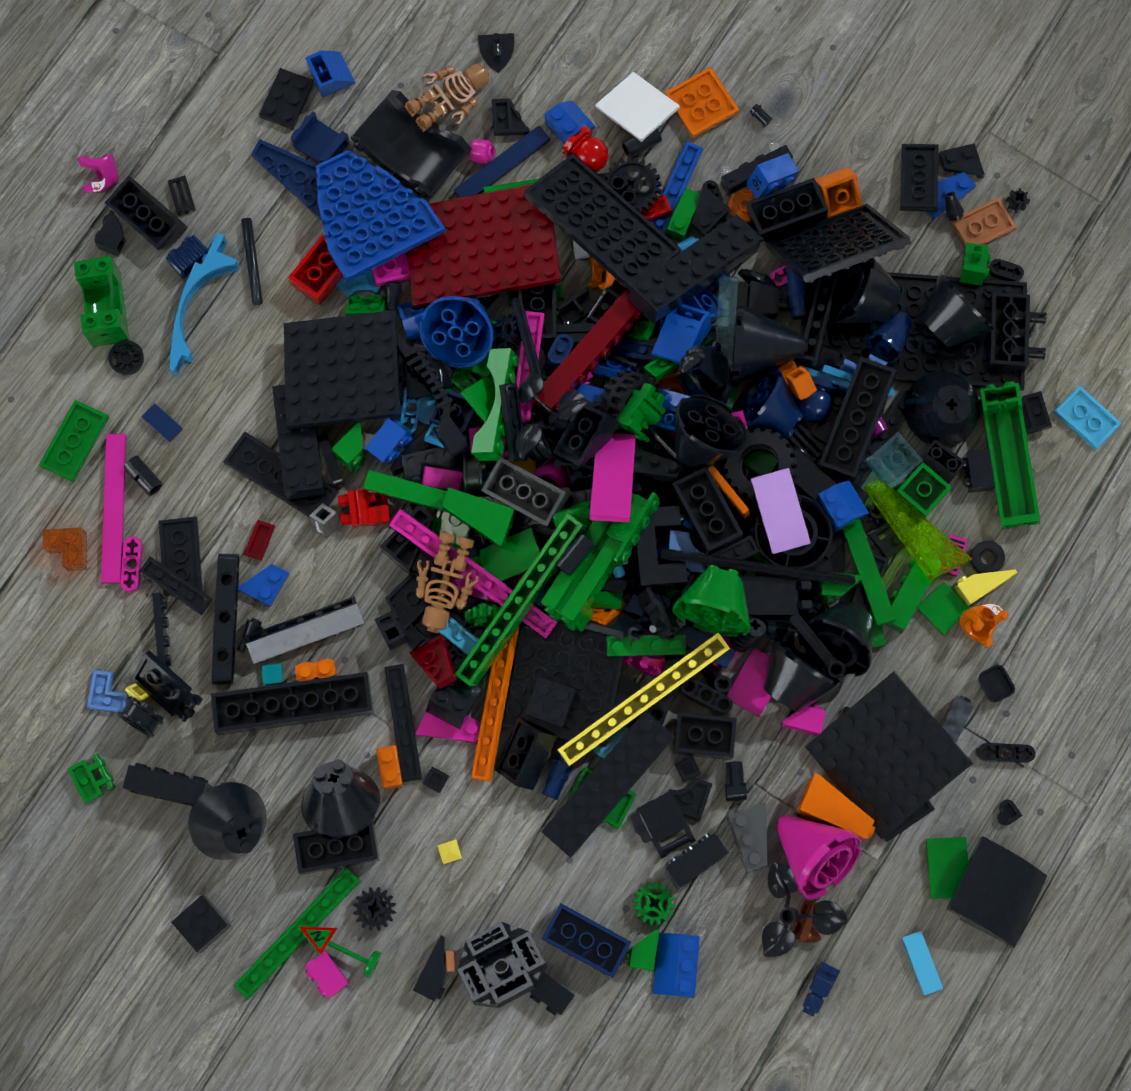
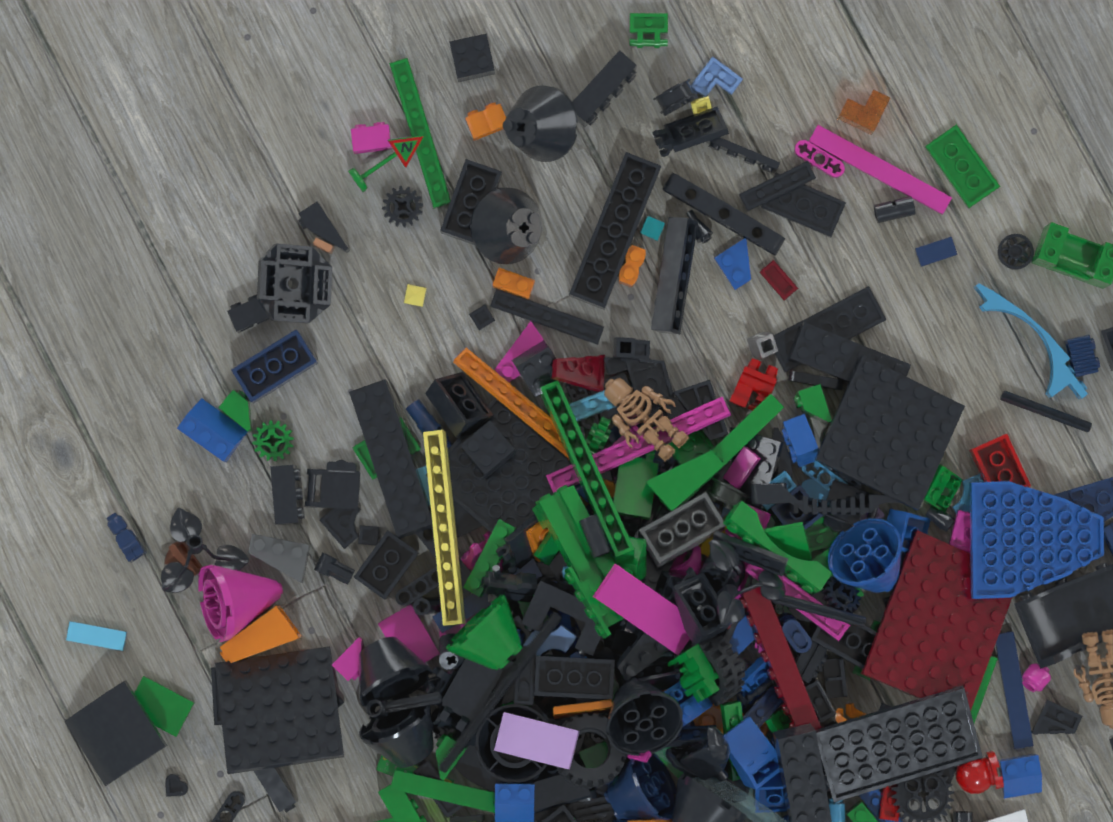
camera: 125 degrees right, 10 degrees up
(254, 877) = (486, 121): none -> orange brick

